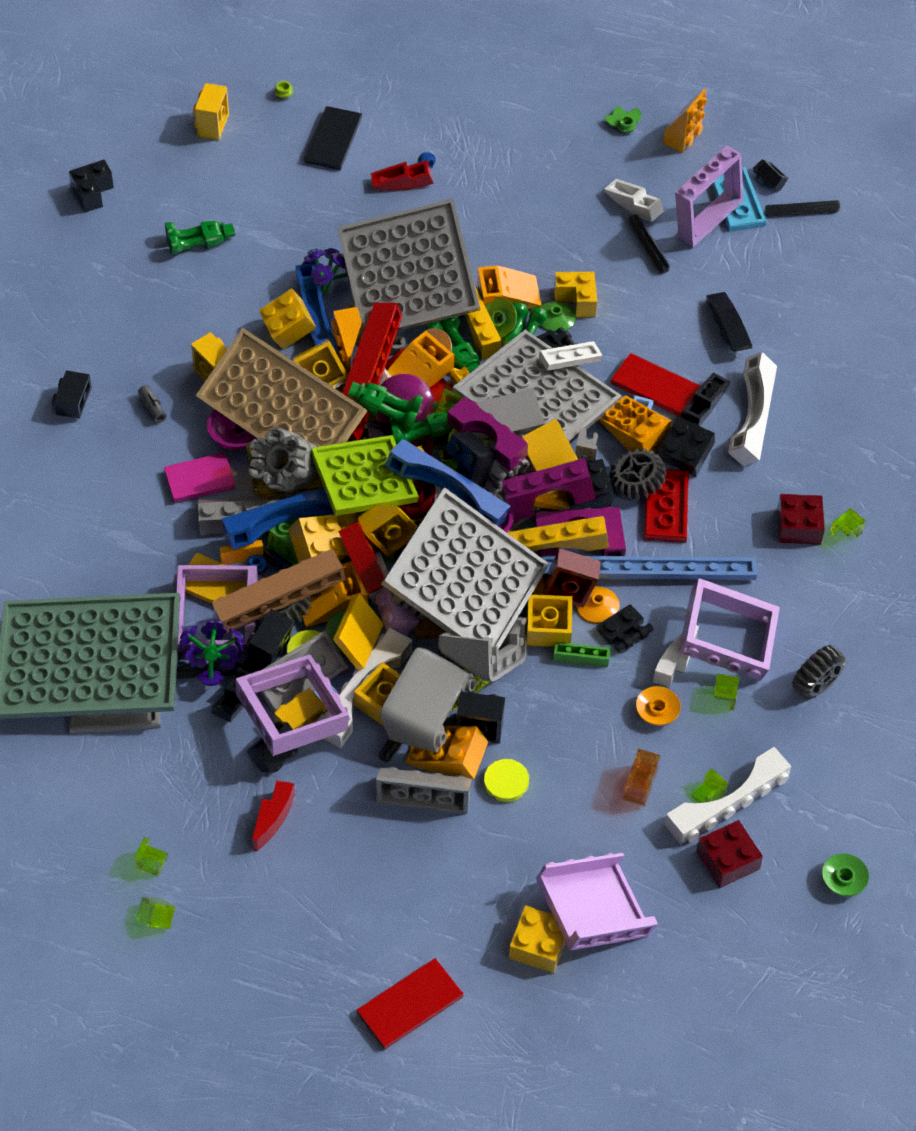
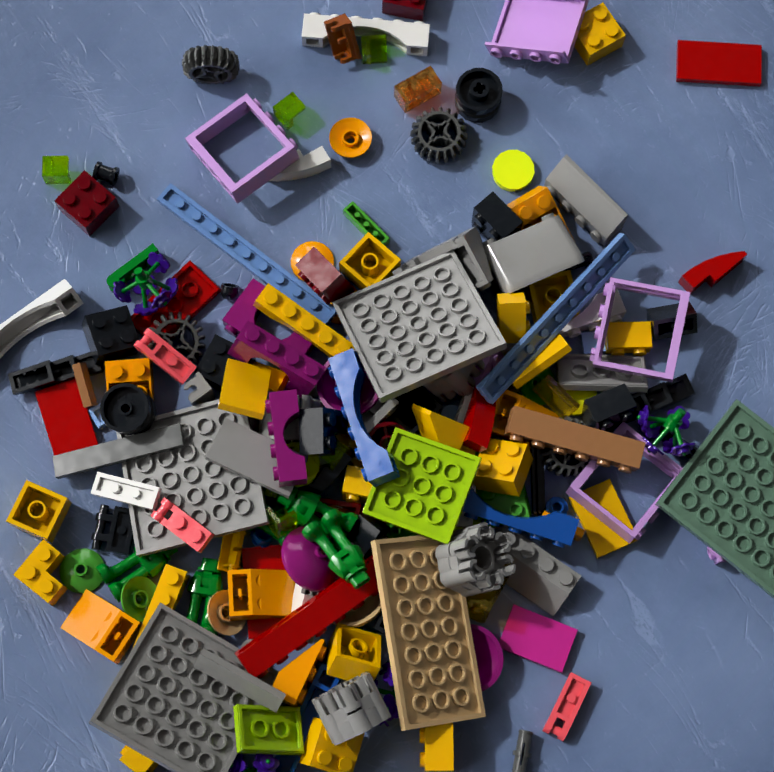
camera: 140 degrees left, 20 degrees up
(143, 451) = (567, 705): none -> coral plate
(287, 318) = (351, 708): none -> light grey piece
(318, 625) = (555, 397): none -> clear yellow tile
(337, 290) = (267, 732): none -> lime tile
(366, 667) = (555, 318): none -> medium blue plate
(382, 296) = (239, 680): none -> light grey tile
(401, 638) = (512, 316): none -> yellow brick
(510, 356) = (183, 526): none -> coral plate
(578, 762) = (428, 124): none -> dark grey gear
(589, 811) = (478, 95): none -> black wheel
(601, 379) = (119, 451): none -> tile
(618, 318) = (39, 511): none -> yellow brick
(620, 395) = (118, 400): none -> black wheel
(620, 624) = (308, 229): black plate -> none
(631, 448) = (165, 356): none -> coral plate
(640, 536) = (229, 289): none -> black hinge
(670, 406) = (84, 384): none -> medium nougat tile
(680, 476) = (146, 283): none -> dark purple plant
(719, 501) = (126, 272): none -> green plate
(740, 770) = (342, 38): none -> dark orange hinge
(811, 550) = (106, 173): none -> black bush

